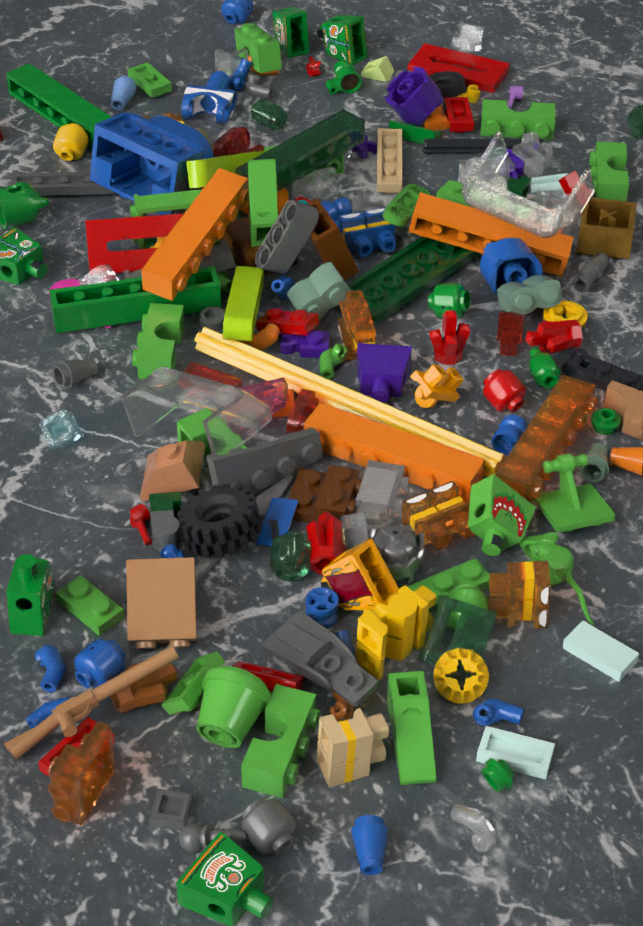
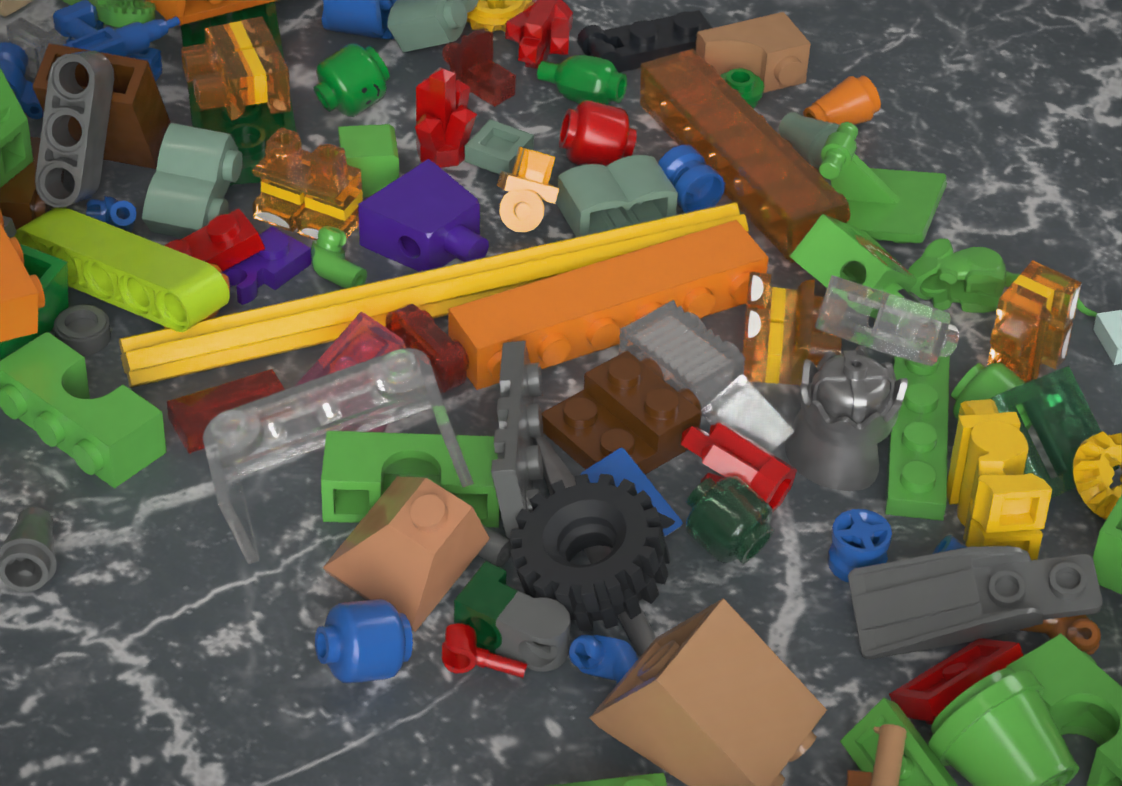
camera: 55 degrees left, 0 degrees up
(60, 429) = (152, 638): clear light blue slope -> none
(110, 484) = (364, 641): none -> blue head
(360, 578) = (866, 464): light orange torso -> none
(366, 221) = (81, 18): none -> blue piece
(402, 263) = (238, 68): none -> clear orange hips
(402, 331) = (374, 152): none -> bright green piece
(456, 538) = (901, 326): none -> clear torso
(464, 364) = (497, 146): none -> sand green plate
(468, 417) = (615, 195): none -> sand green brick

